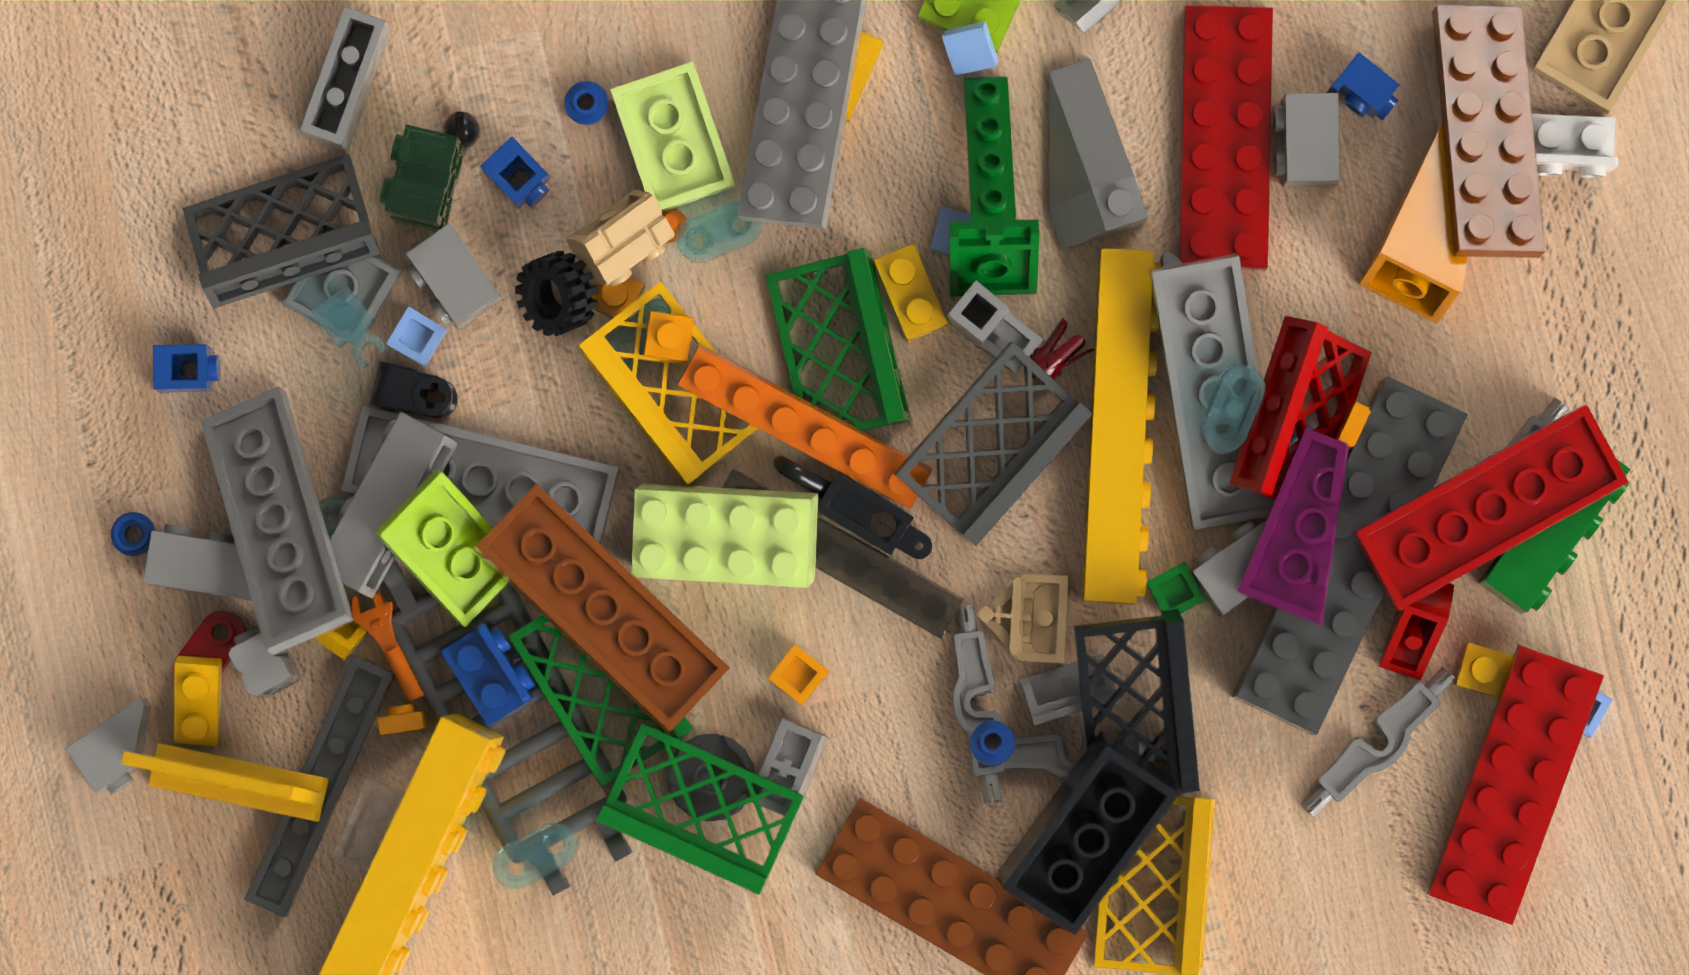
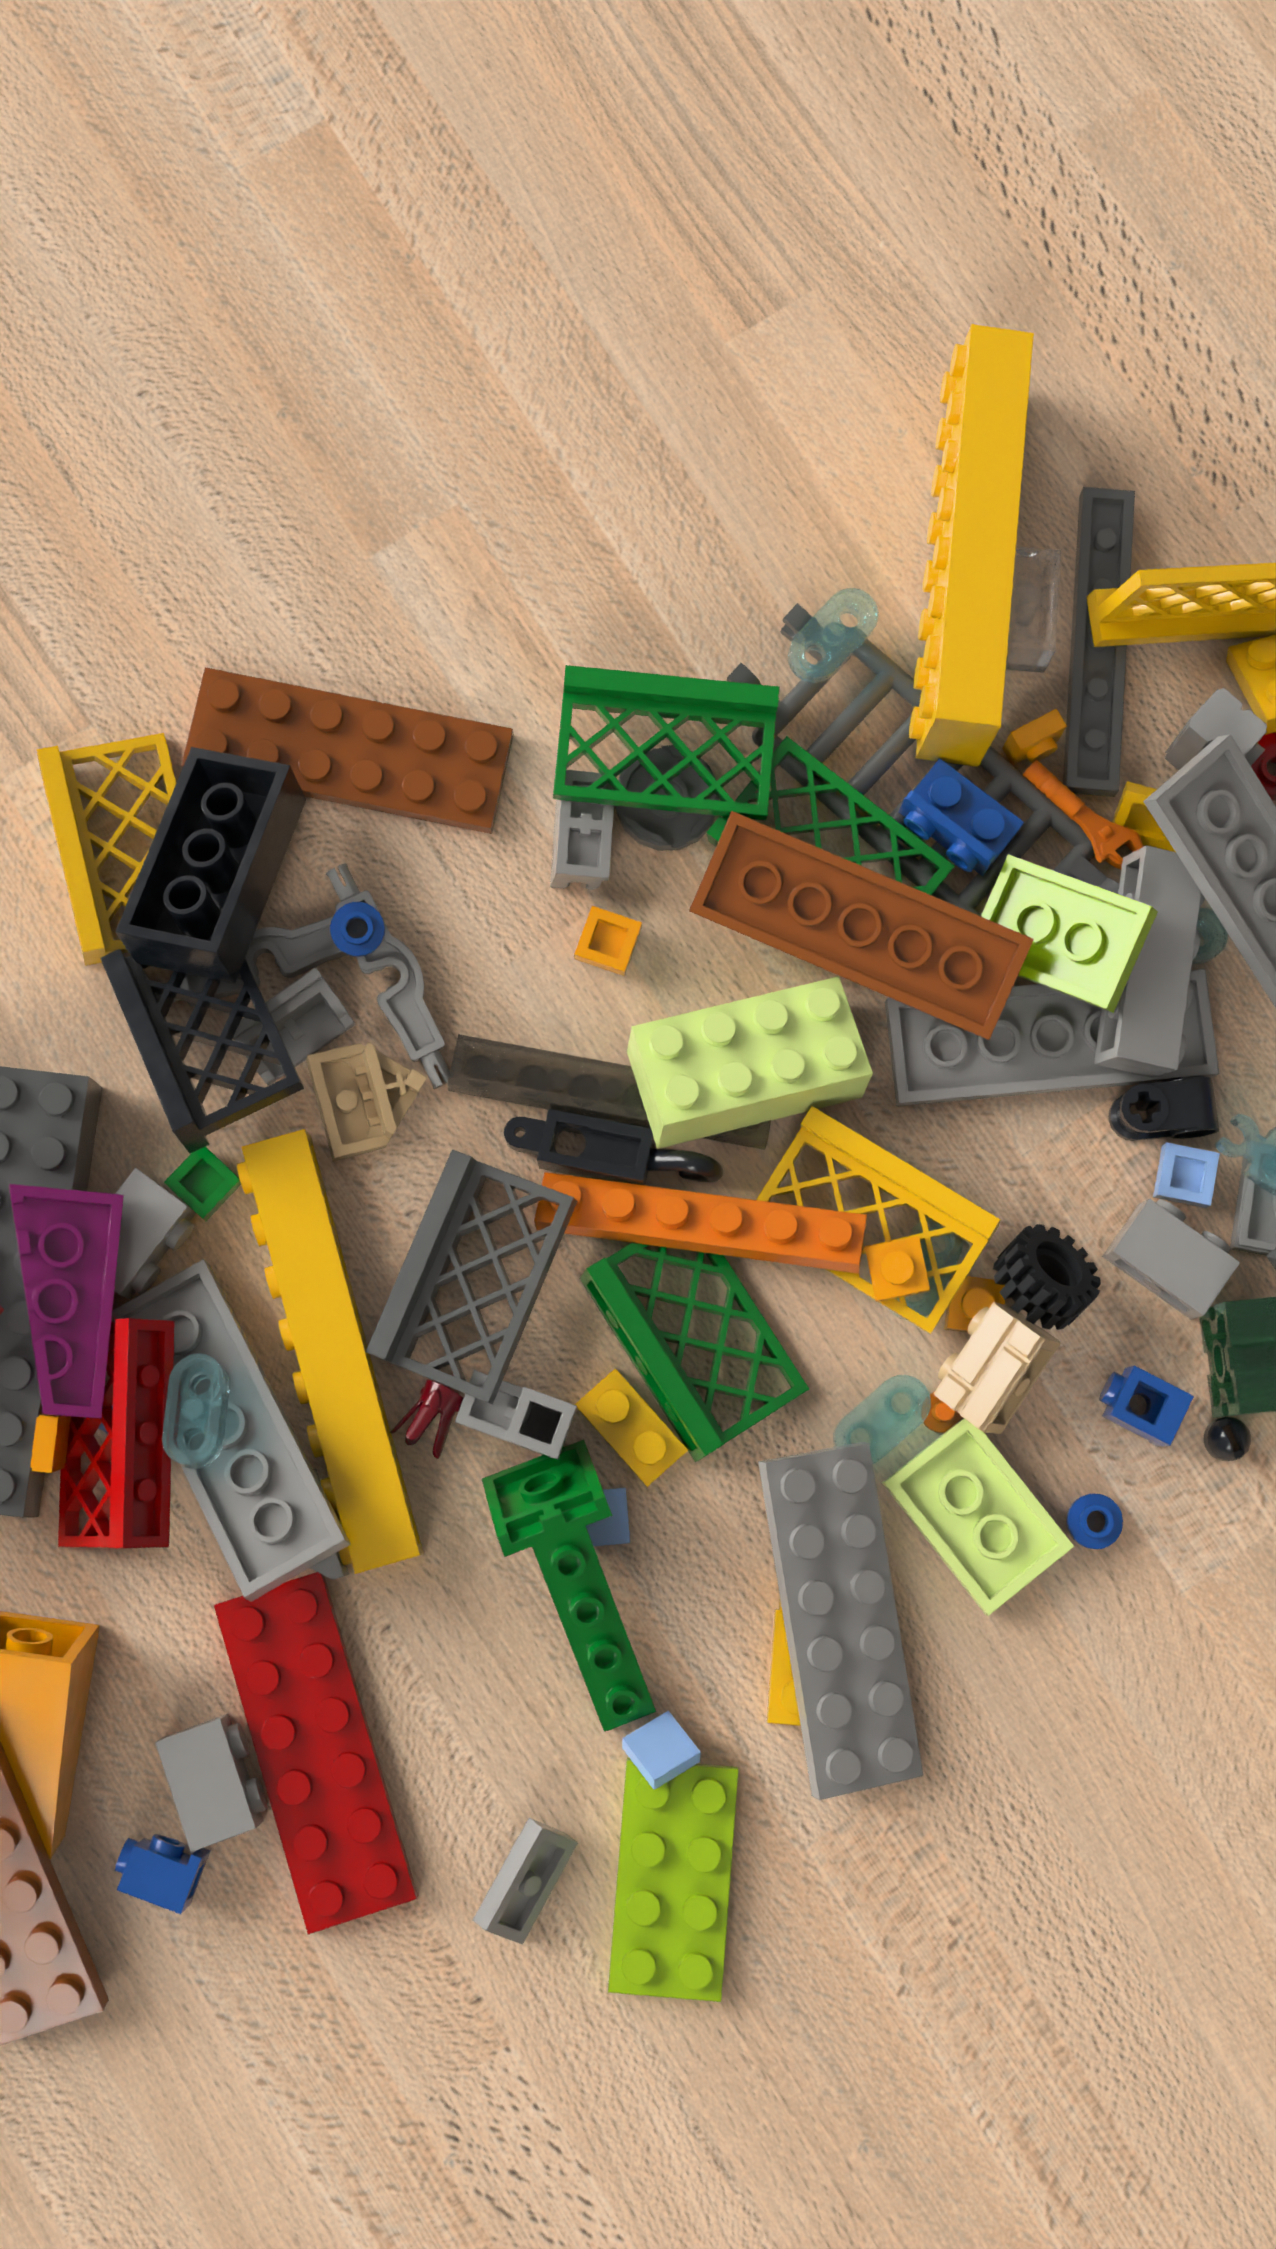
camera: 155 degrees right, 5 degrees down
(1088, 169) = (468, 1651): light grey wedge -> none

